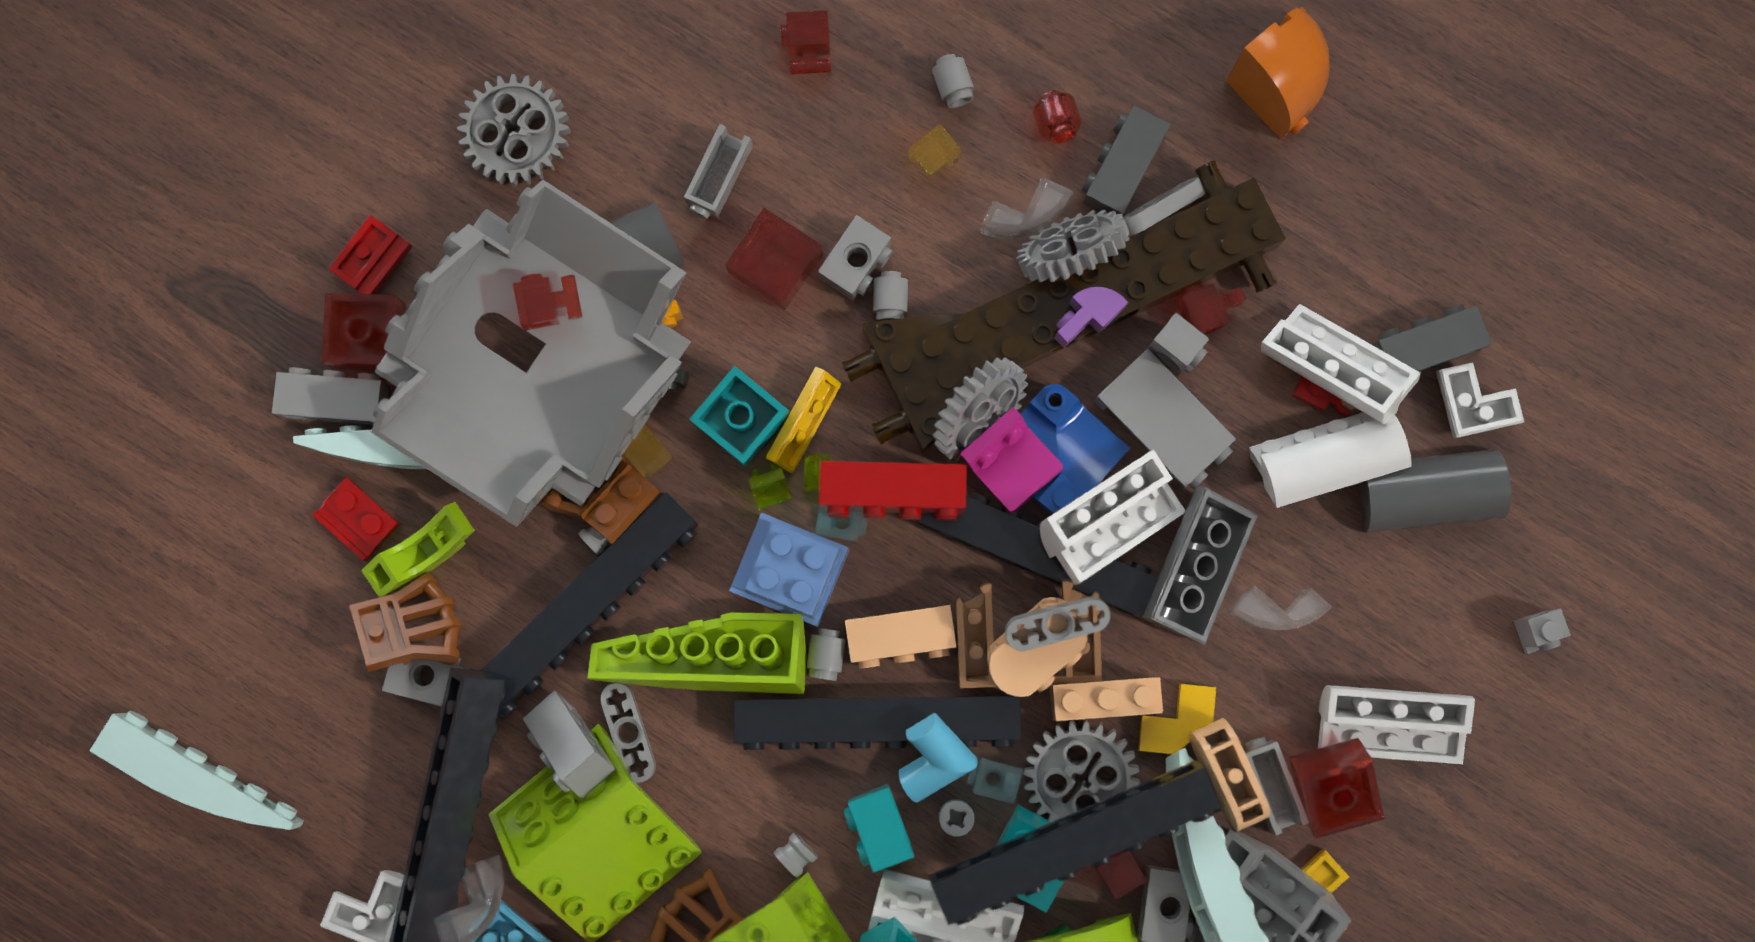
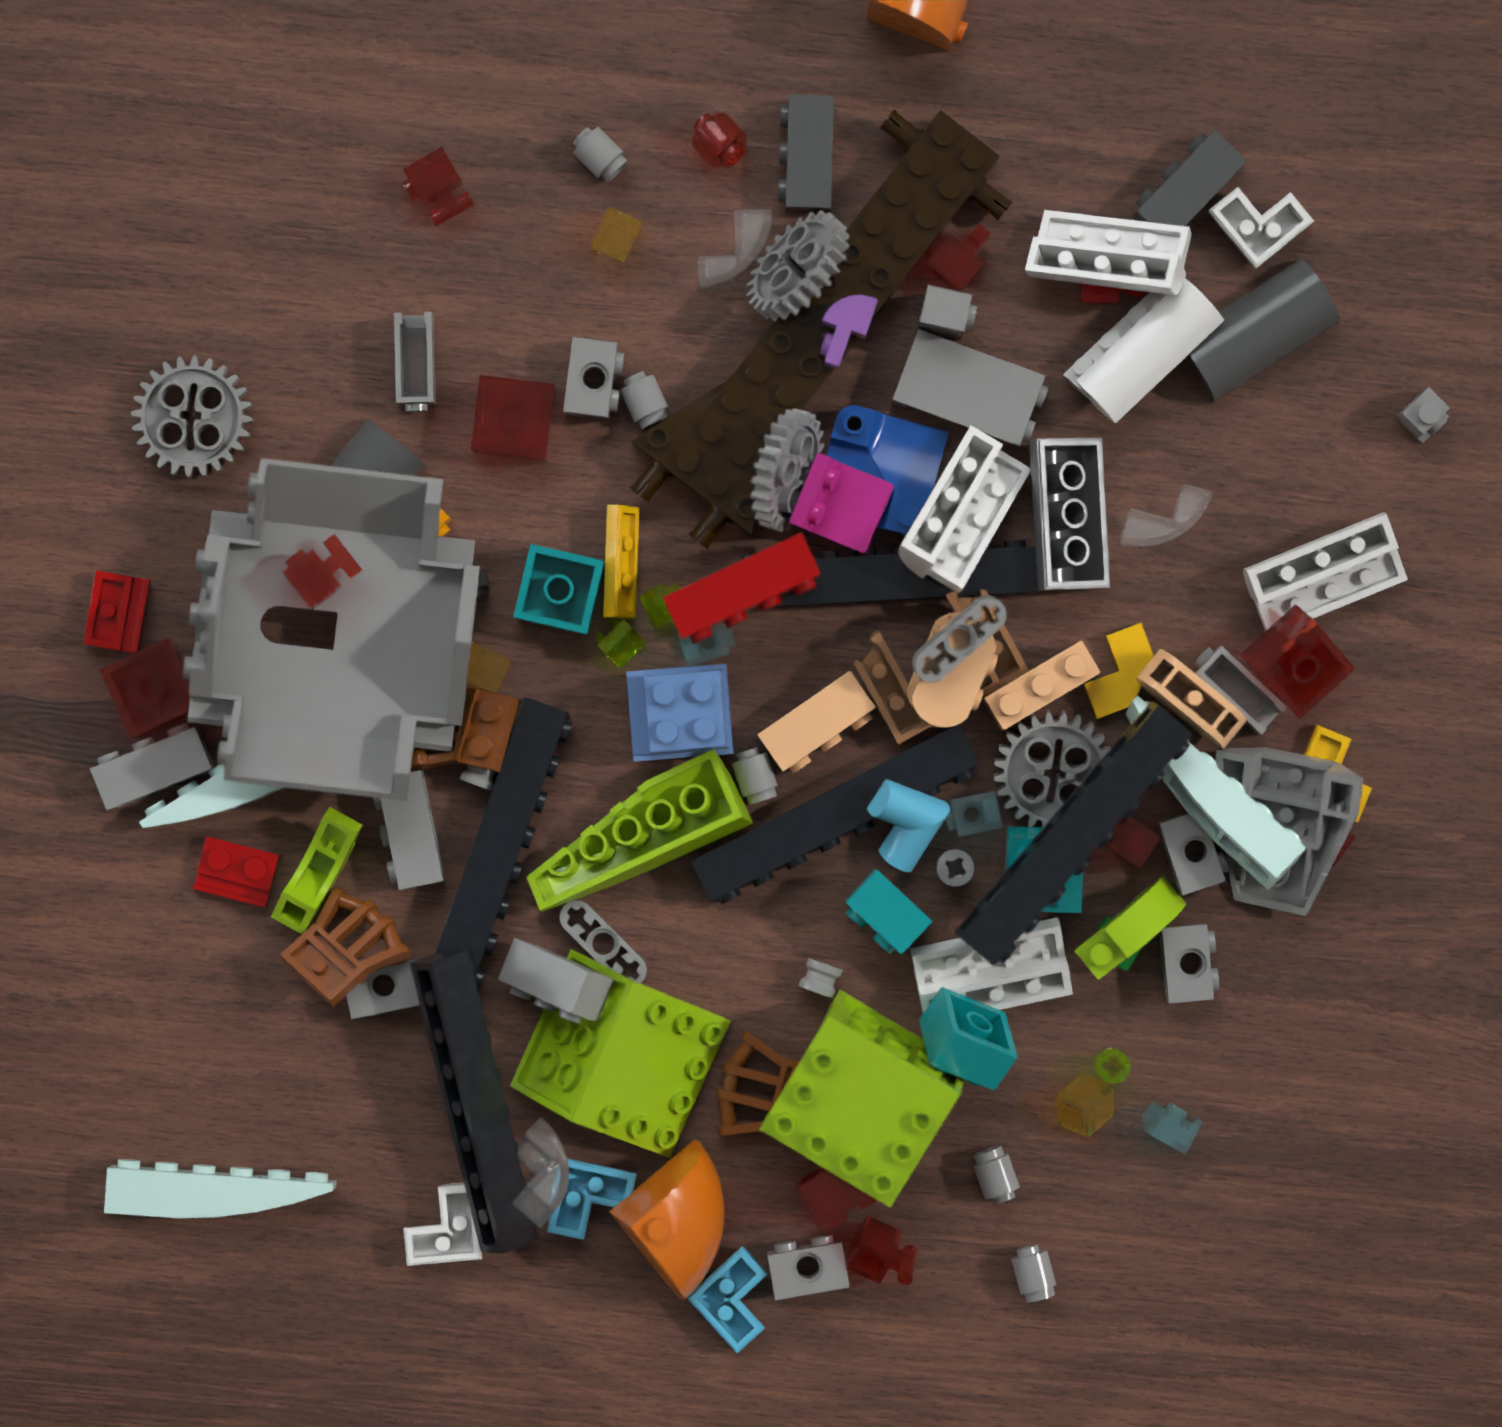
camera: 30 degrees left, 5 degrees up
(514, 561) = (411, 836): none -> light grey brick
(1164, 205) = (865, 180): light grey beam -> none

